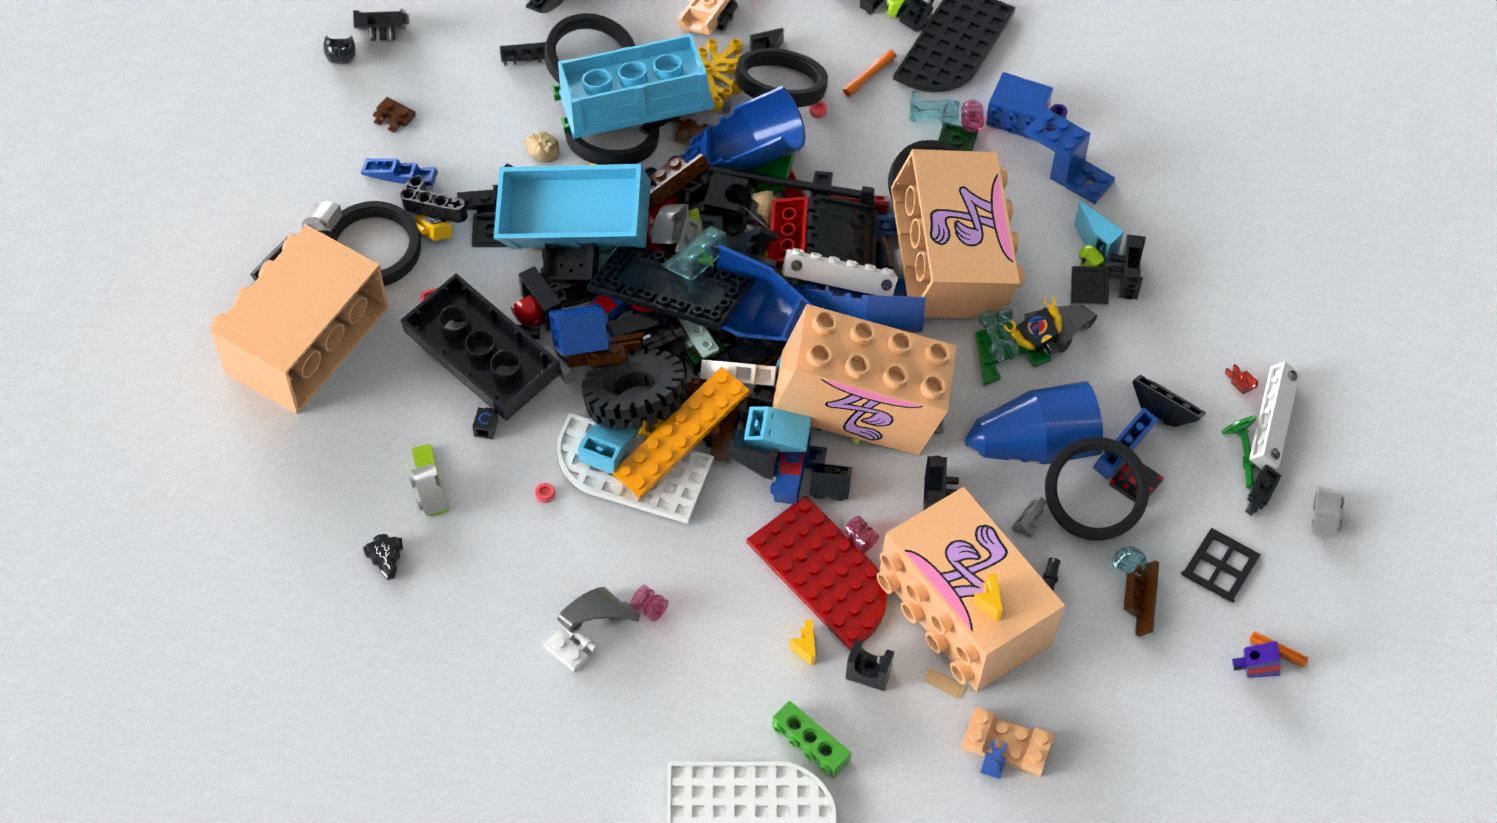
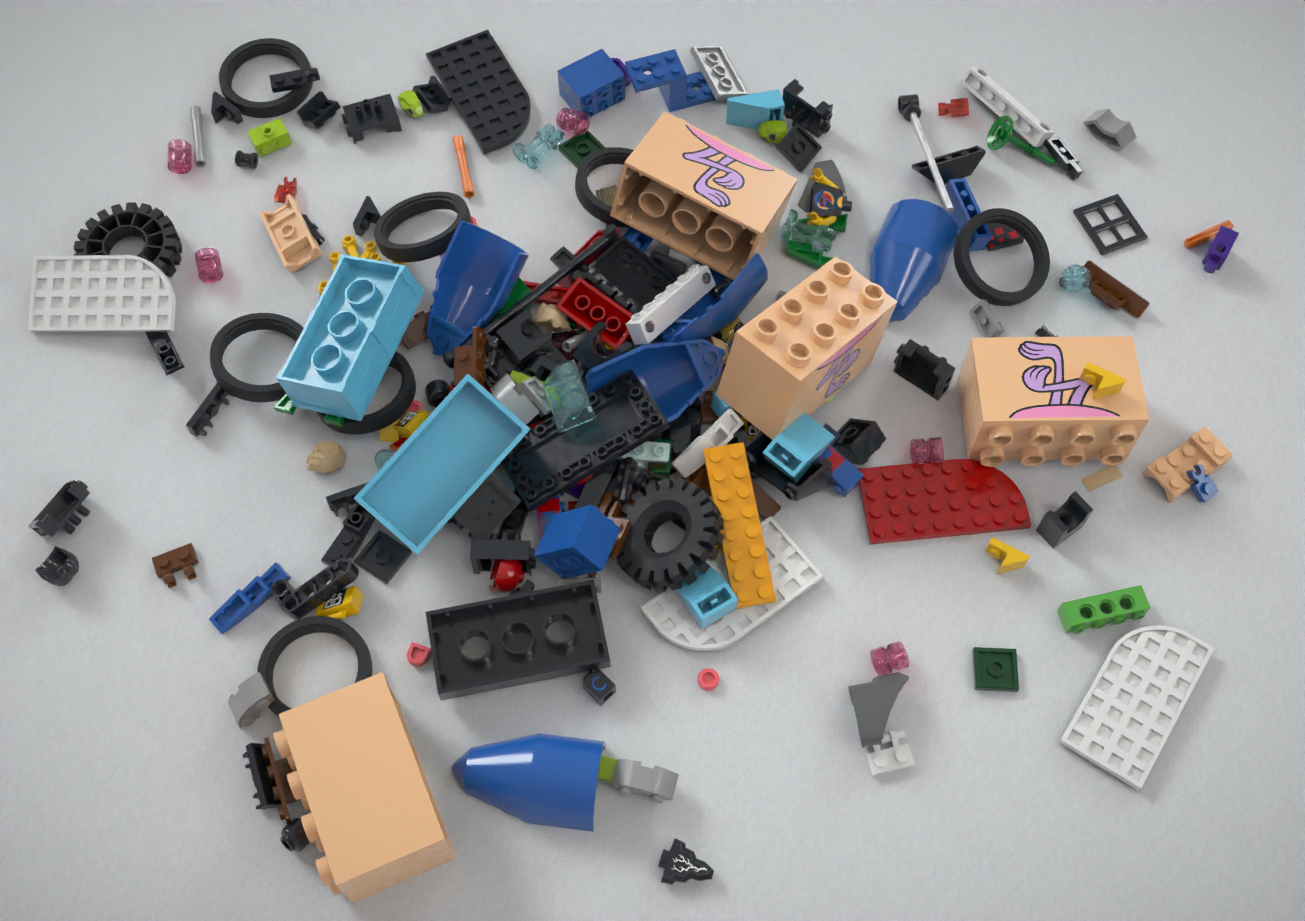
camera: 55 degrees left, 5 degrees up
(384, 420) = (536, 778): none -> blue windscreen
(699, 687) = (995, 669): none -> dark green tile
(1118, 187) = (718, 72): none -> light grey tile
(1209, 343) = (910, 108): none -> flat silver piece

